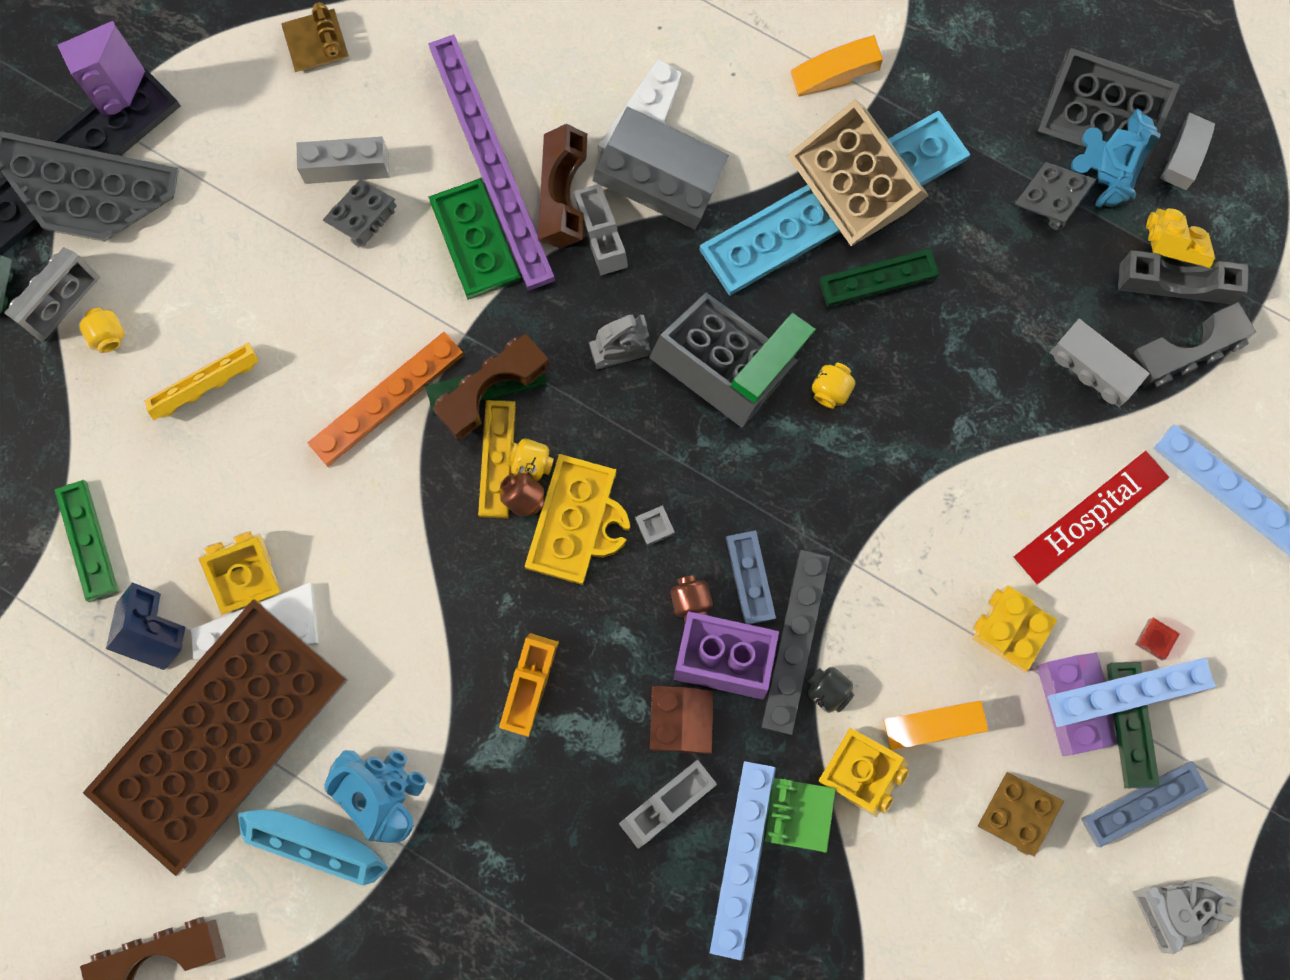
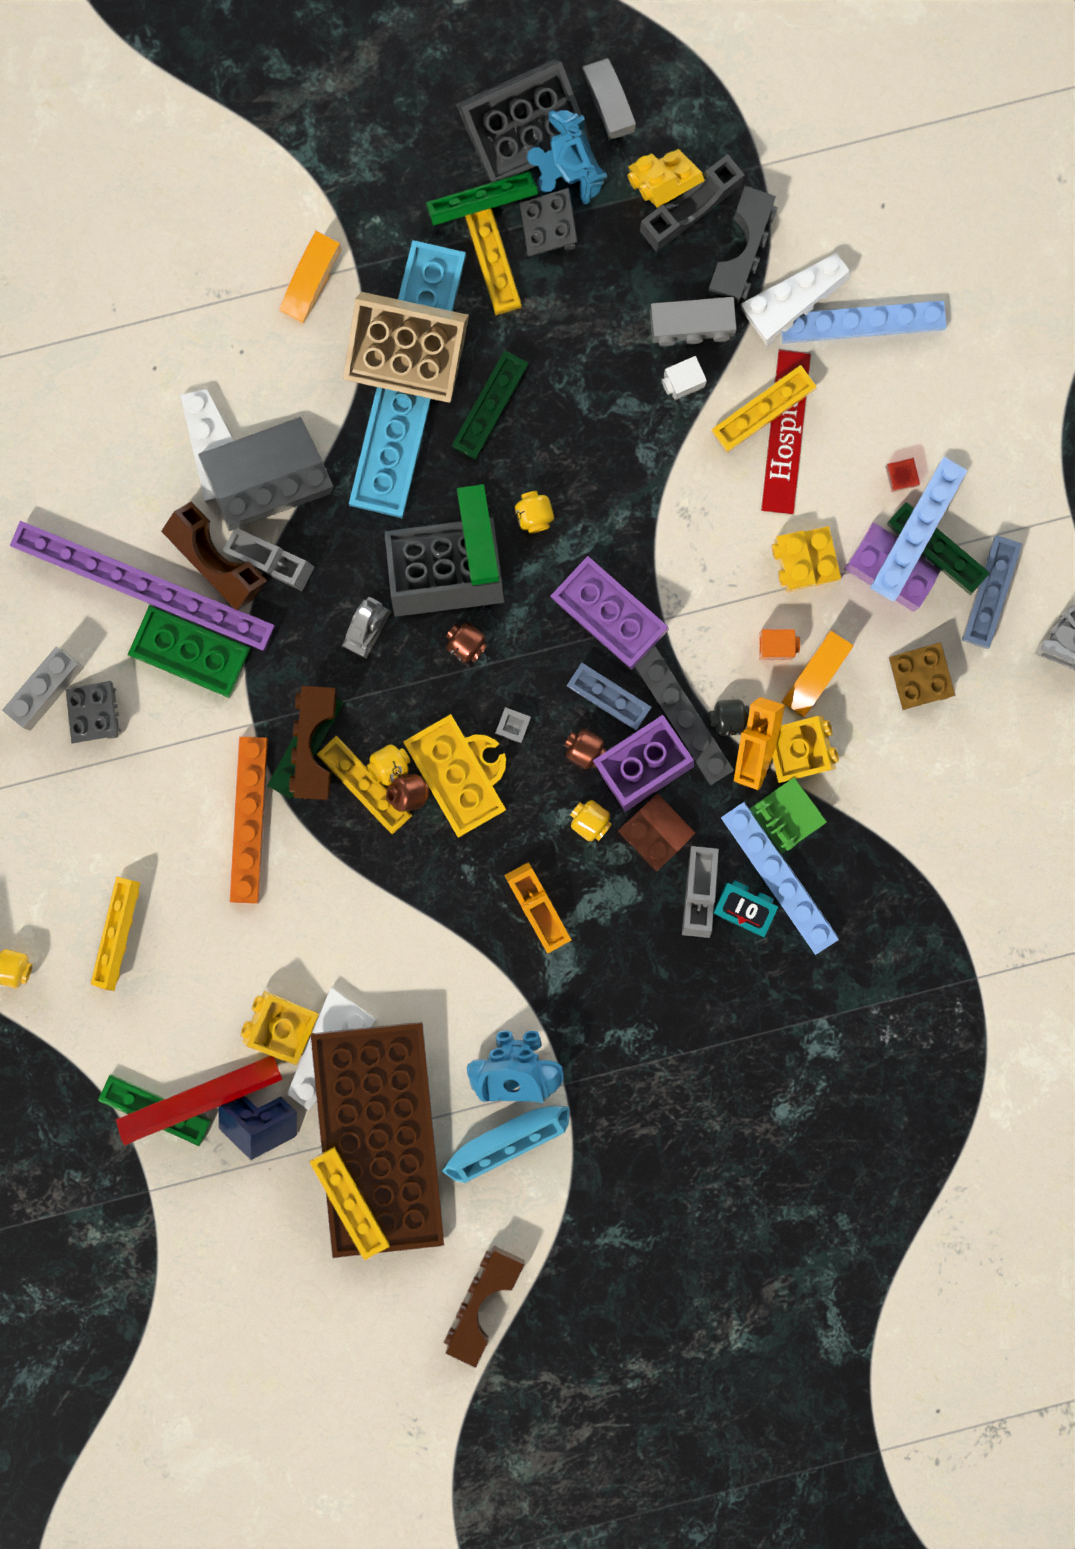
camera: 45 degrees left, 10 degrees up
(121, 563) = (198, 1100): none -> red tile
(138, 762) = (349, 1203): none -> yellow plate
(638, 658) = (590, 820): none -> yellow head
(683, 429) = (466, 642): none -> copper head
(690, 855) = (745, 909): none -> brick
(816, 514) = (609, 612): none -> medium lavender plate
(834, 731) = (758, 742): none -> light orange slope
(926, 671) = (778, 644): none -> orange brick
(985, 180) = (493, 261): none -> yellow tile
(1021, 130) = (481, 198): none -> green tile
(1049, 398) = (684, 378): none -> white brick
(1091, 481) = (764, 409): none -> yellow plate
(1189, 418) = (785, 302): none -> white wing

